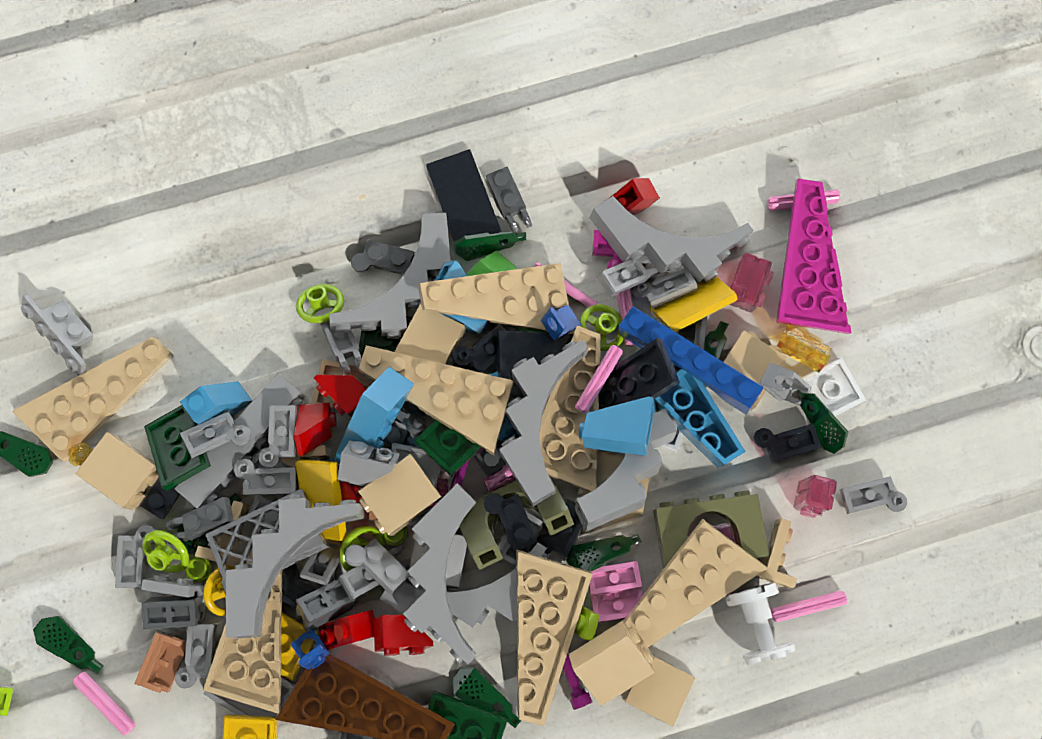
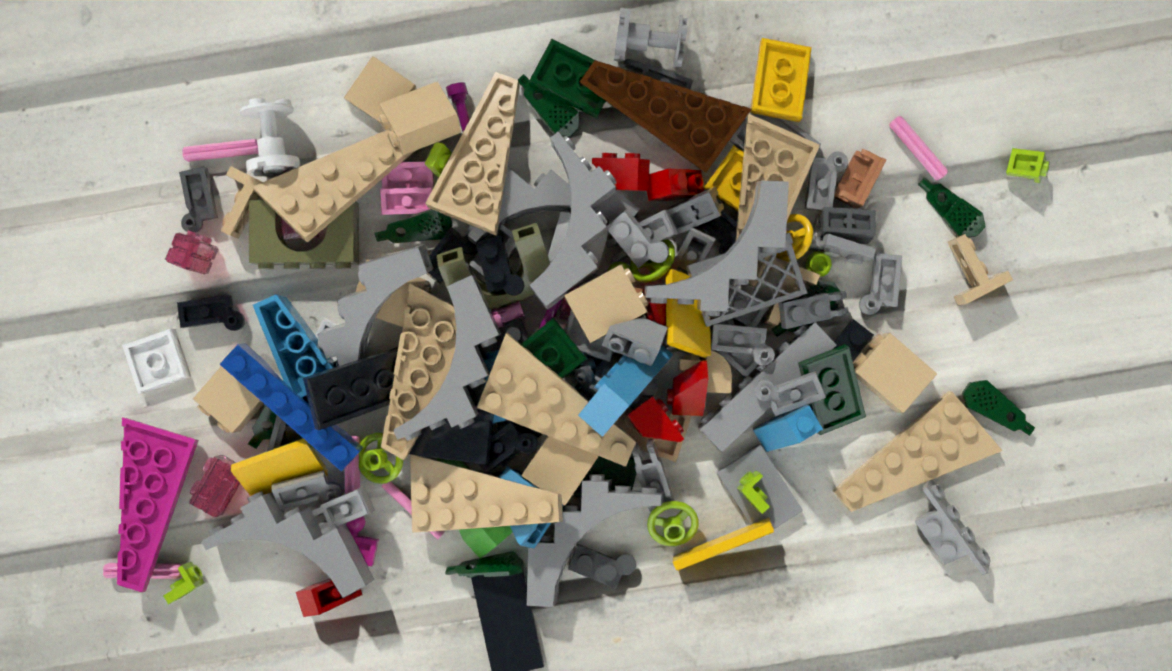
camera: 175 degrees left, 10 degrees up
(41, 580) = (975, 271): none -> tan bracket
(74, 453) = (932, 401): clear yellow plate -> none
(164, 554) = (852, 281): lime piece -> none
(241, 344) = (780, 499): none -> light grey tile
(250, 344) = (754, 496): none -> lime bracket
(270, 290) = (723, 544): none -> yellow tile
(281, 435) = (722, 383): light grey hinge -> none
(314, 657) = (711, 160): blue bracket -> none
(508, 197) = (459, 616): dark grey hinge -> none
(560, 322) = (420, 466): bracket -> none
(599, 379) = (388, 398): bright pink axle -> none
(620, 427) = (373, 342): dark azure slope -> none
(759, 193) = (191, 580): none -> lime bracket
(782, 383) = (203, 372): light grey hinge -> none
(804, 348) = (174, 407): clear yellow bracket -> none
(822, 553) = (198, 198): none -> dark grey hinge
(823, 416) = (173, 331): dark green piece -> none
(872, 495) = (135, 248): light grey hinge -> none

